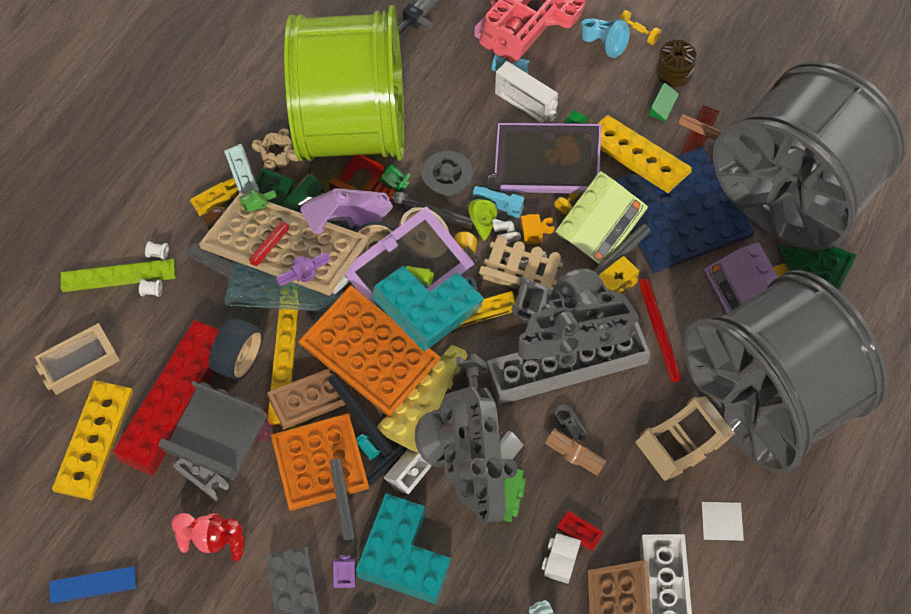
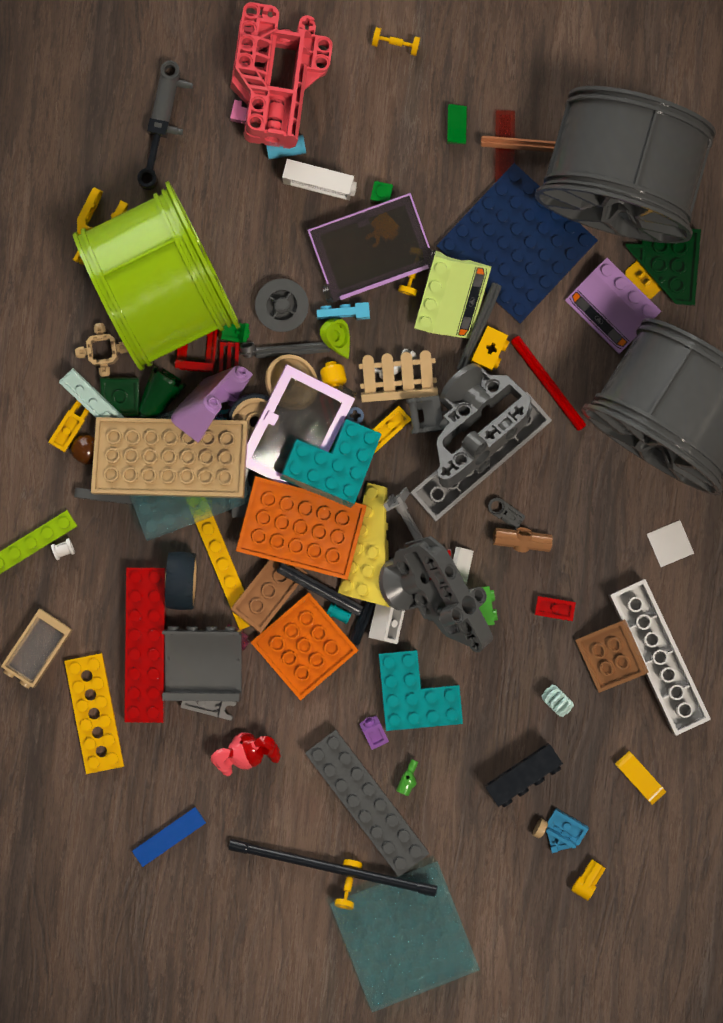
camera: 25 degrees left, 25 degrees up
(157, 250) = (46, 508): white bush -> none
(256, 200) = (119, 423): bright green piece -> none
(269, 244) = (160, 469): red axle -> none
(303, 269) = (209, 486): medium lavender axle -> none
(342, 499) = (342, 673): dark grey axle -> none
(423, 275) = (312, 436): lime cone -> none
(511, 235) = (364, 335): white piece -> none
(533, 229) = (389, 329): light orange brick -> none
(562, 558) = (549, 639): white brick -> none
(612, 34) = (372, 63): medium azure piece -> none
(638, 162) = (467, 193): yellow plate -> none
(659, 456) = (629, 459): tan window -> none
(676, 63) = (452, 86): dark brown wheel -> none

